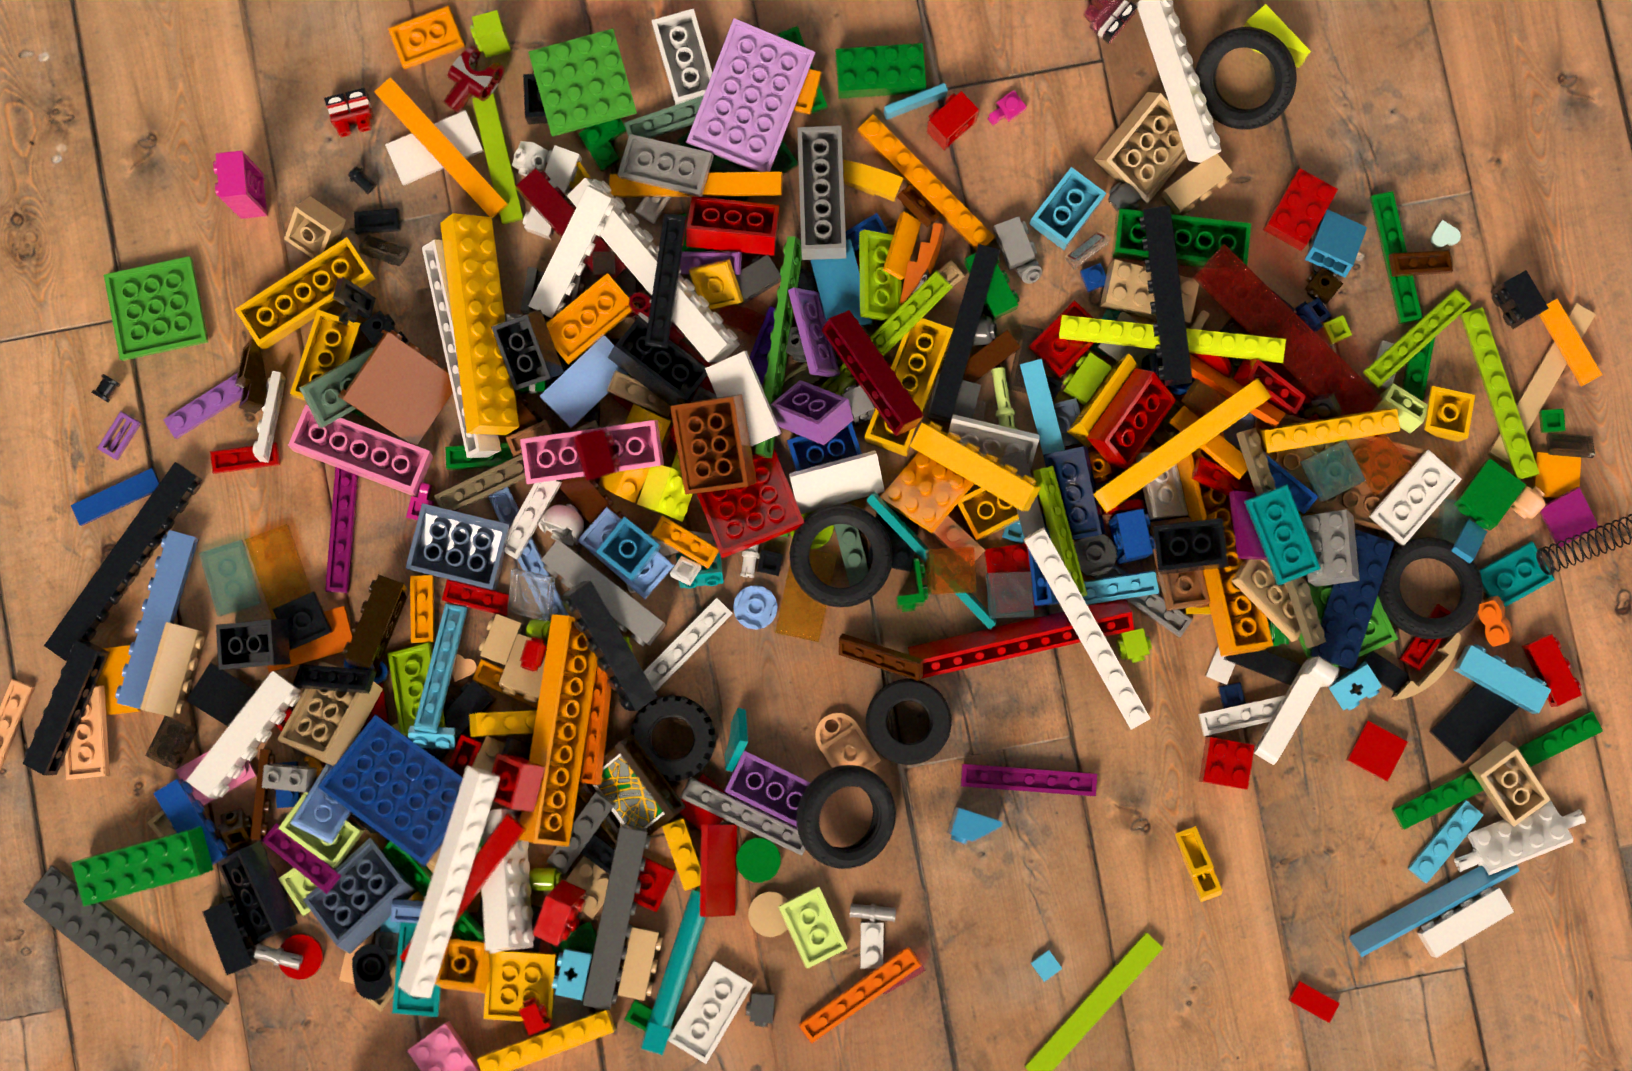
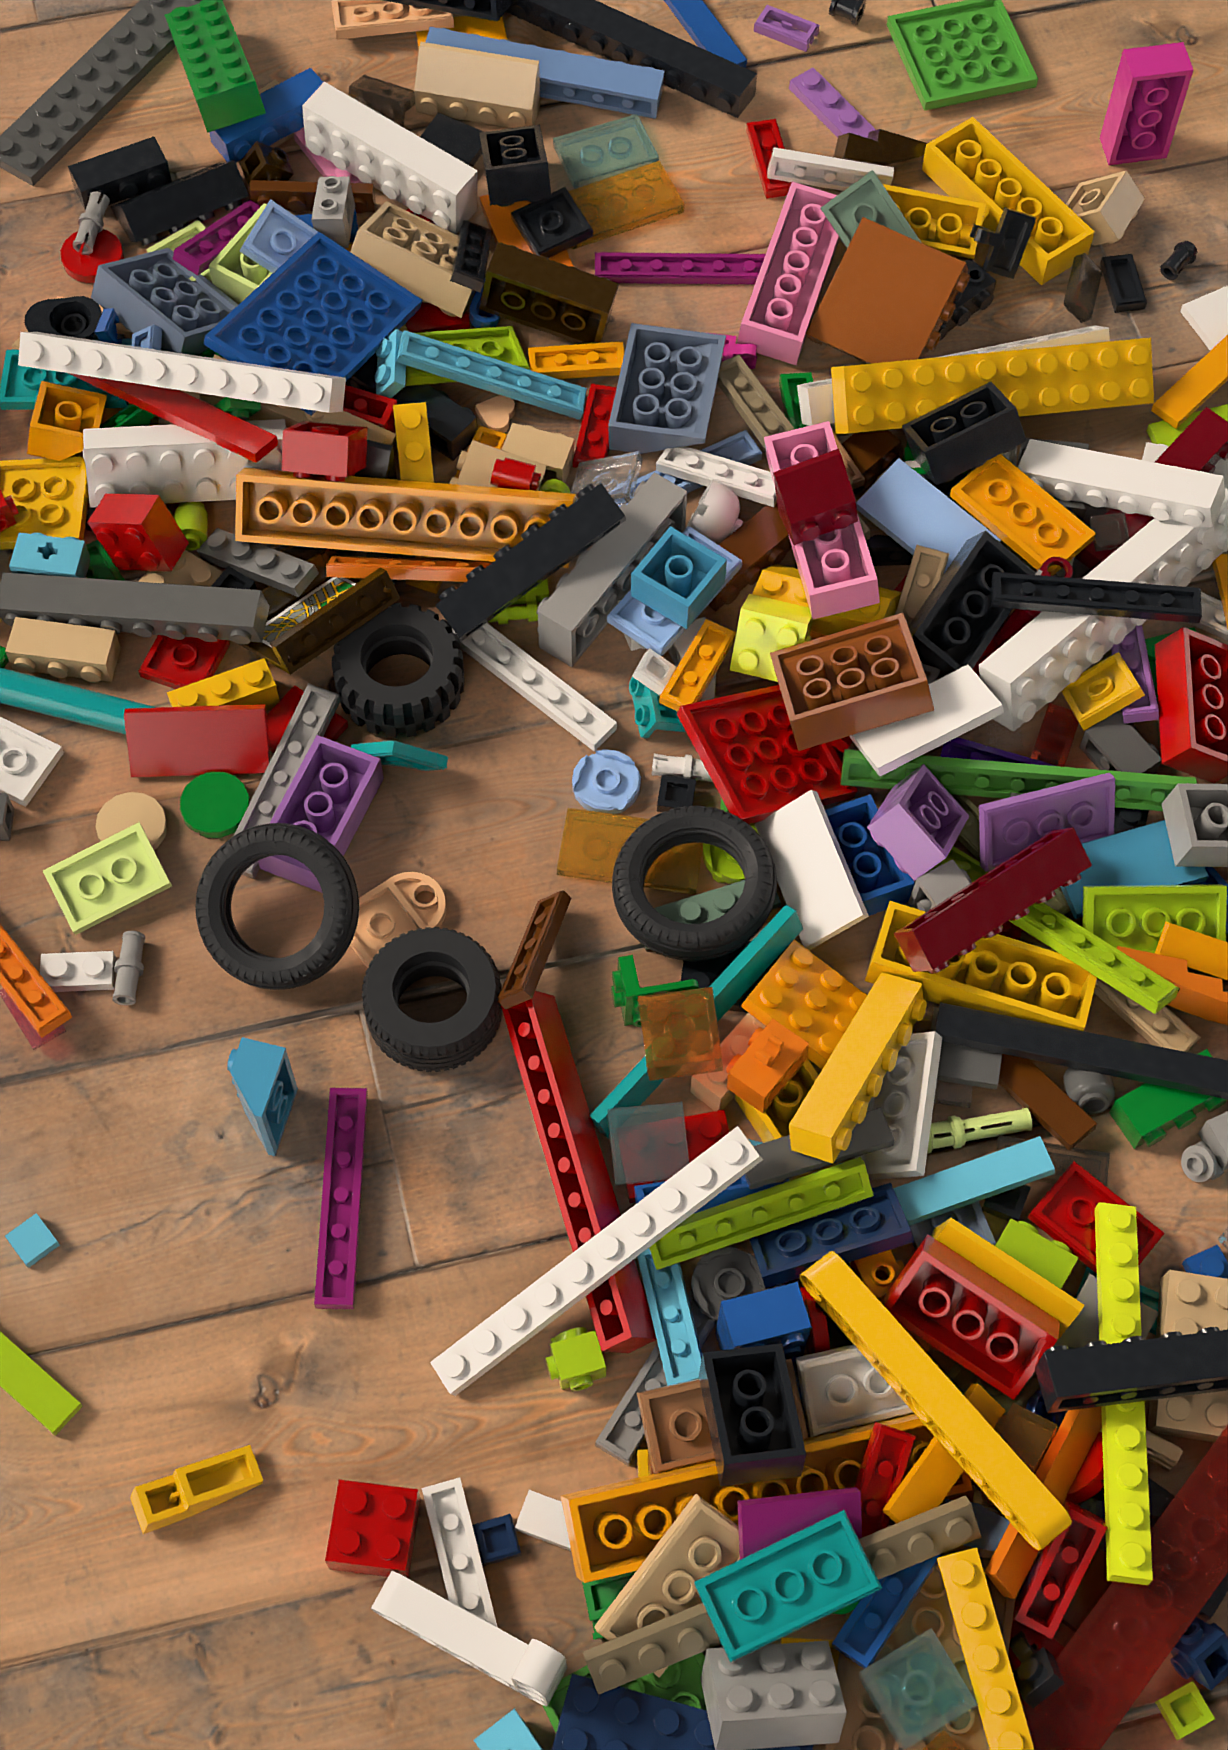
camera: 85 degrees right, 20 degrees down
(382, 941) = (106, 328): none -> blue tile
(972, 521) = (766, 1065): none -> orange brick
(1267, 665) = (554, 1593): black tile -> none

